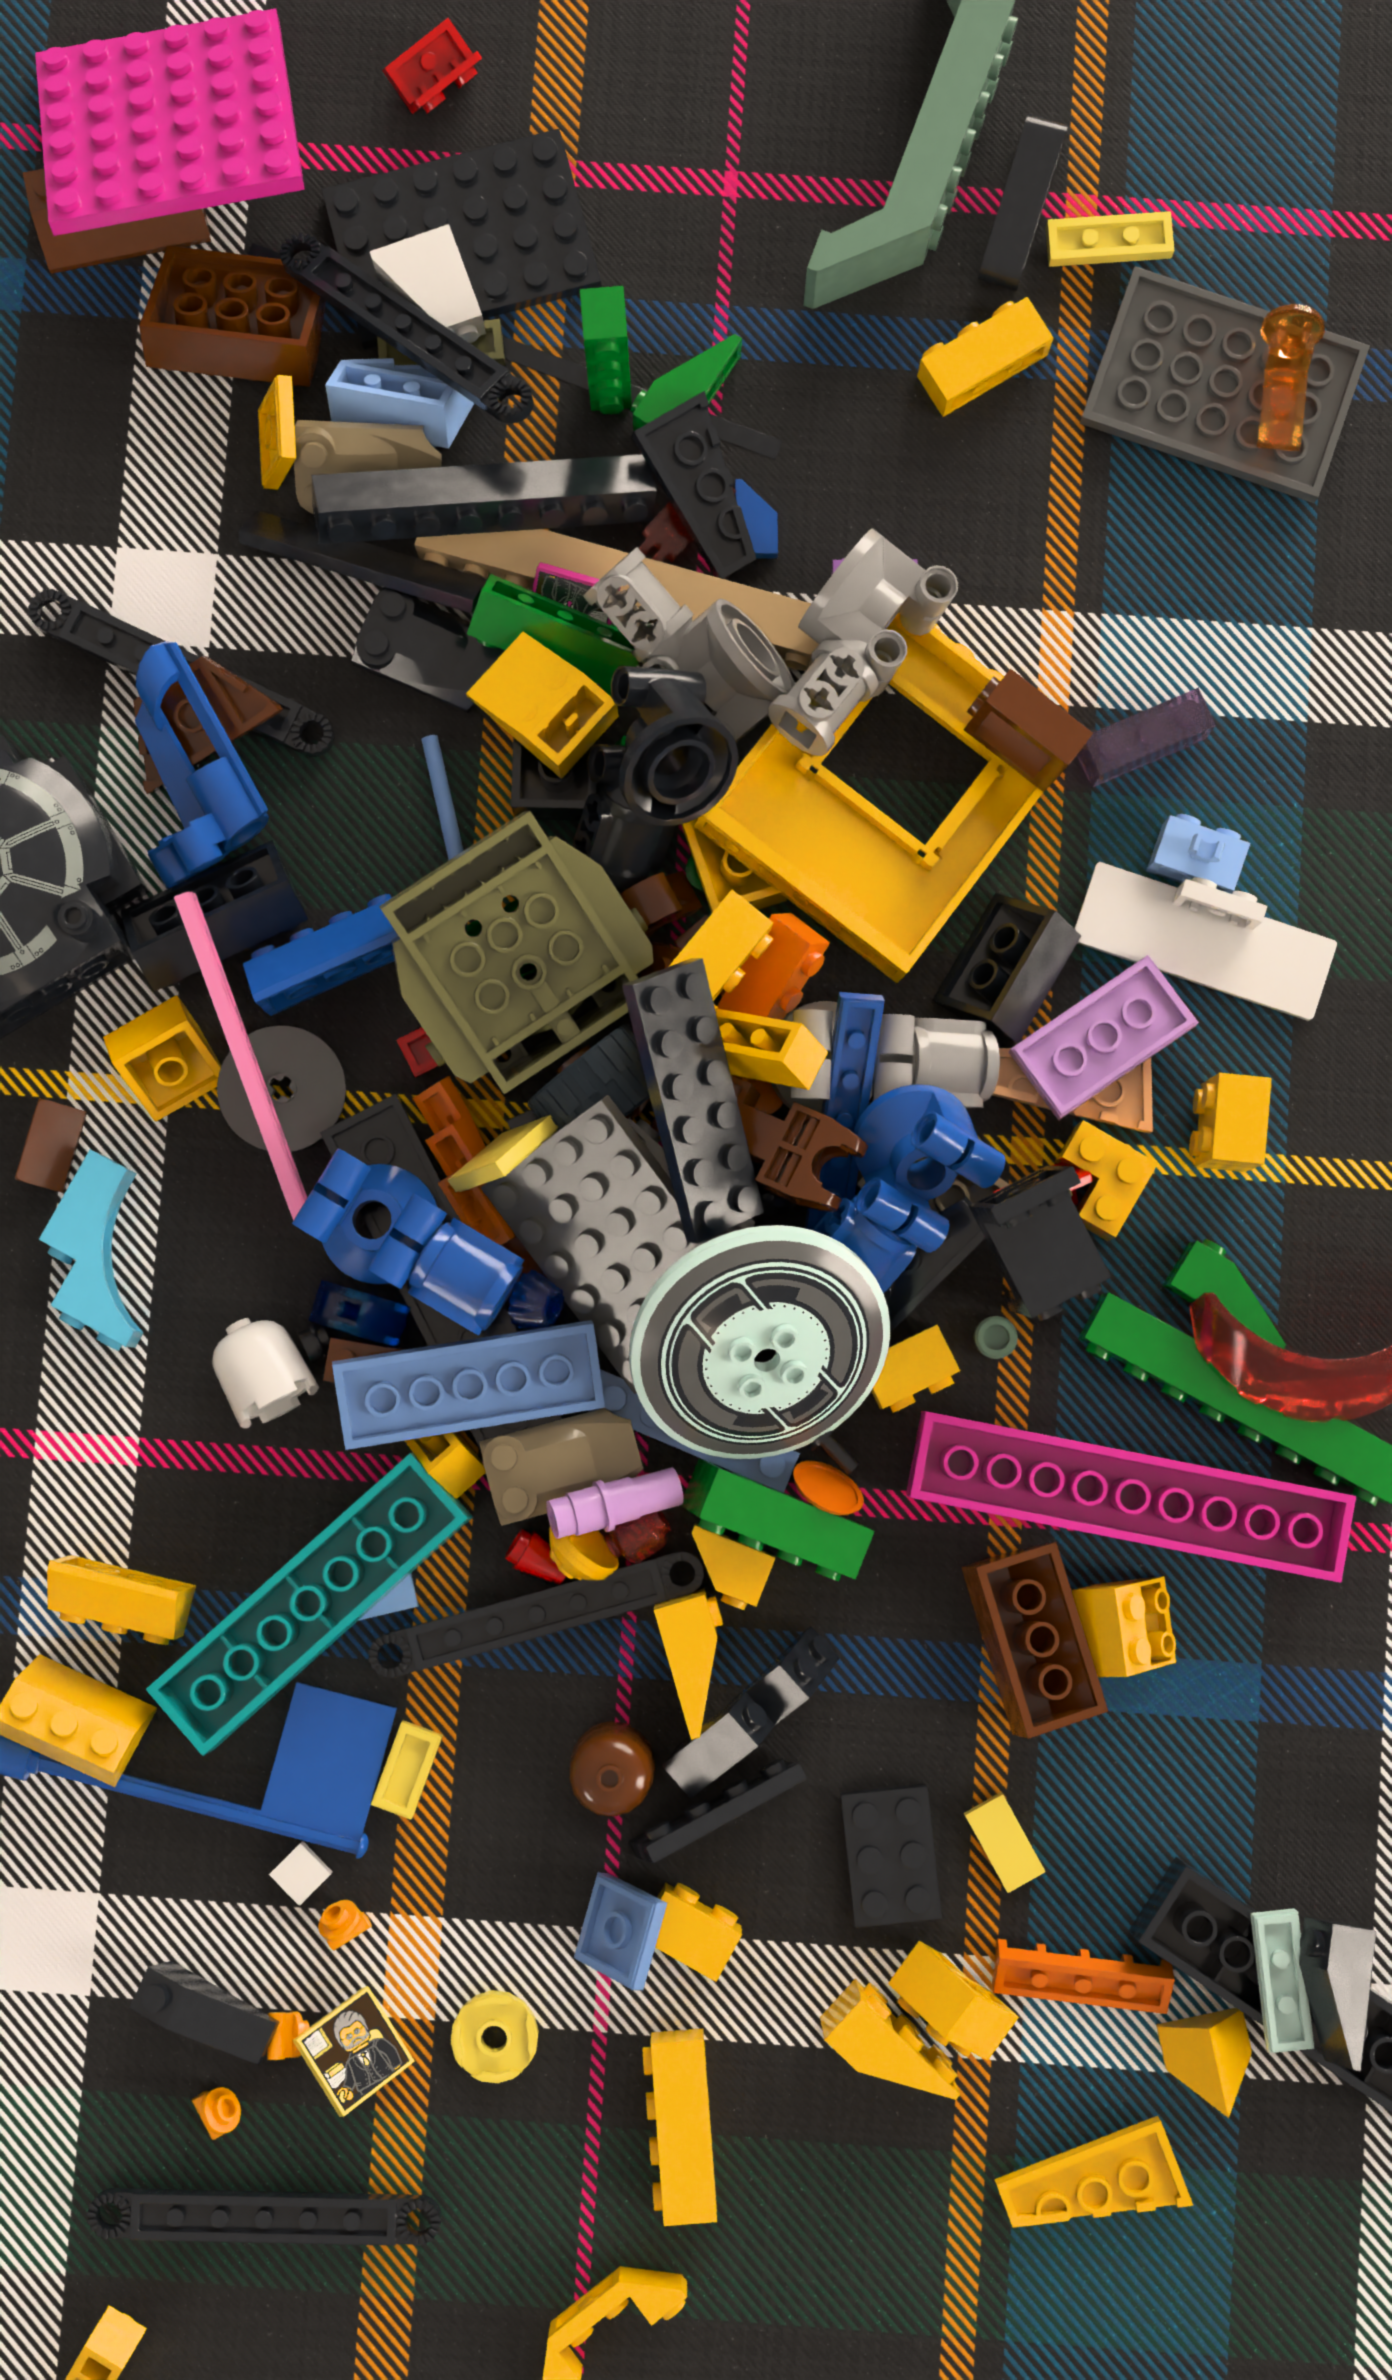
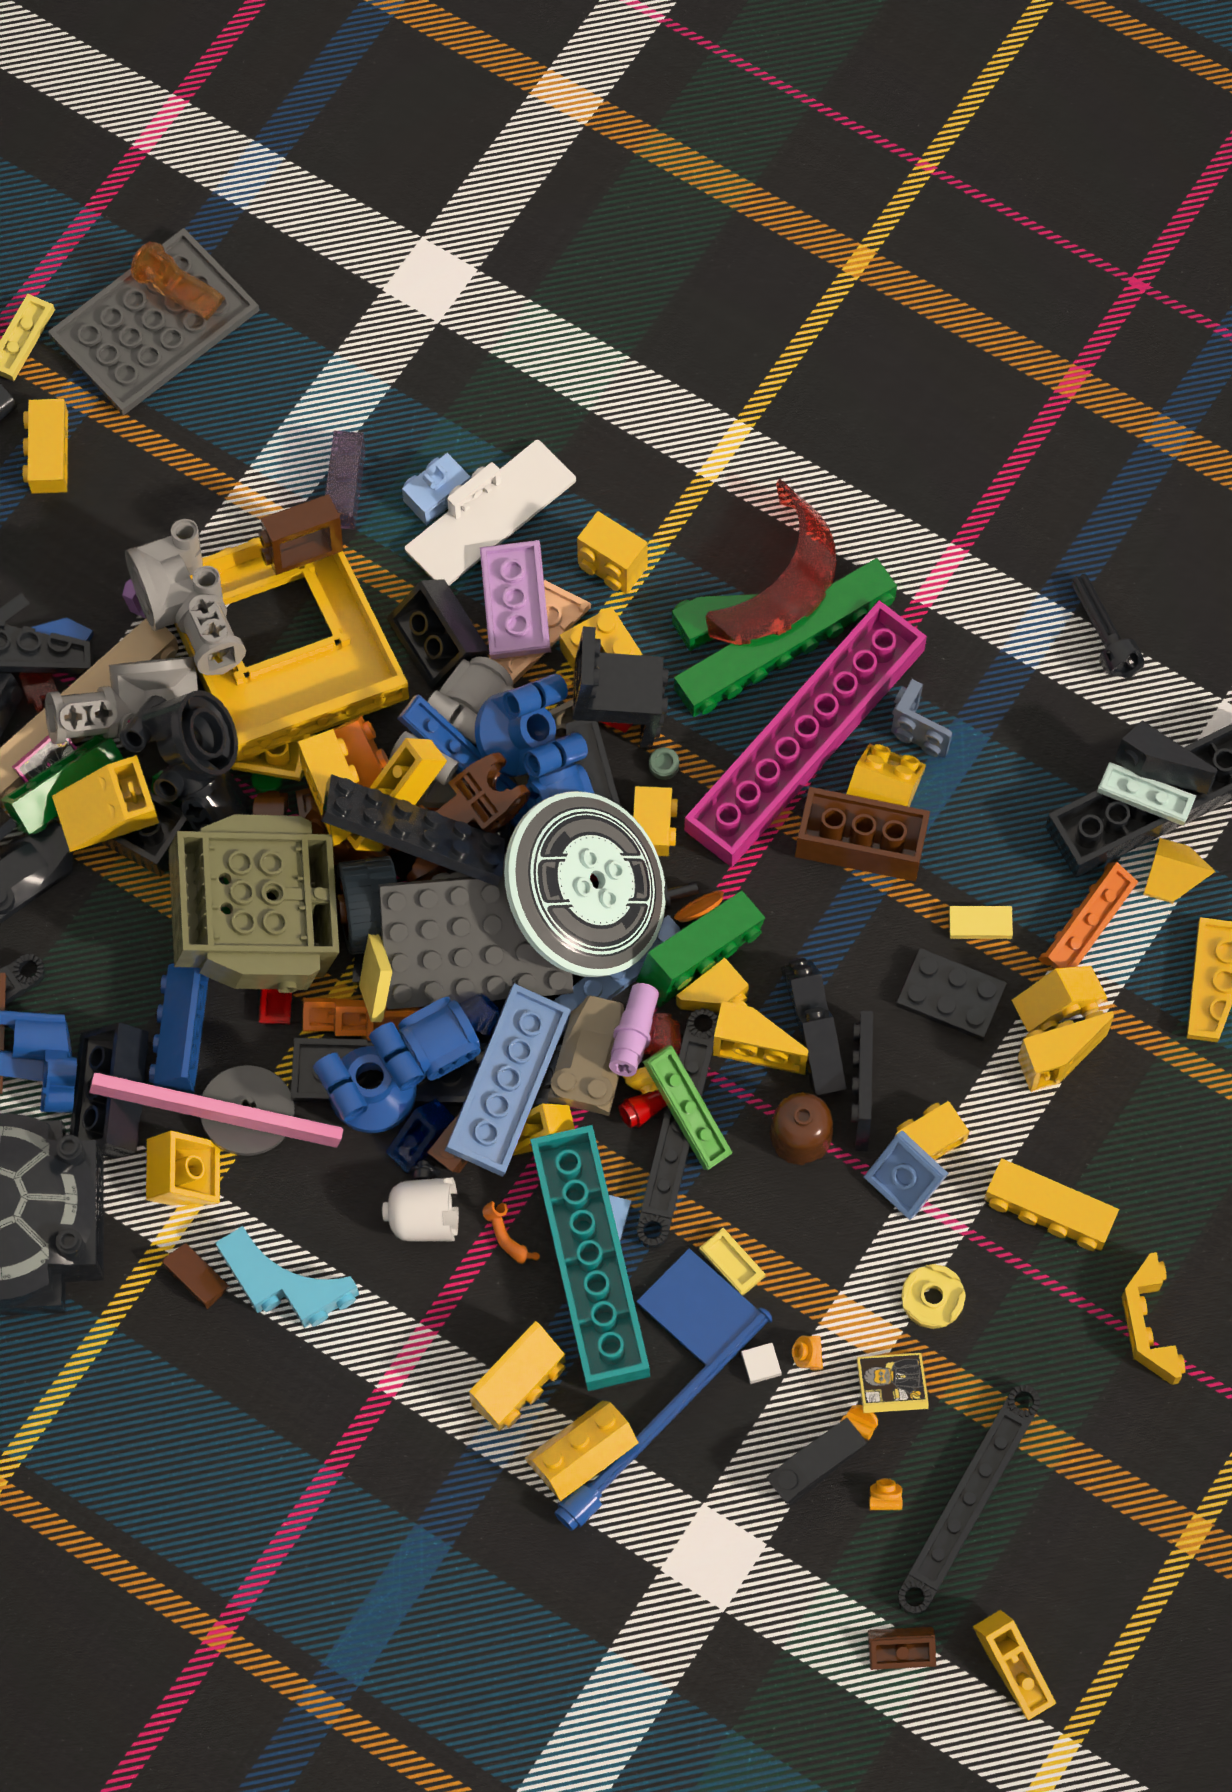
camera: 60 degrees left, 15 degrees down
(48, 2226) = (902, 1648): none -> reddish brown slope
(280, 1502) = (512, 1248): none -> orange piece
(442, 795) = (123, 914): medium blue bar -> none
(557, 1618) = (687, 1107): none -> bright green tile
(1208, 1619) = (914, 728): none -> sand blue bracket

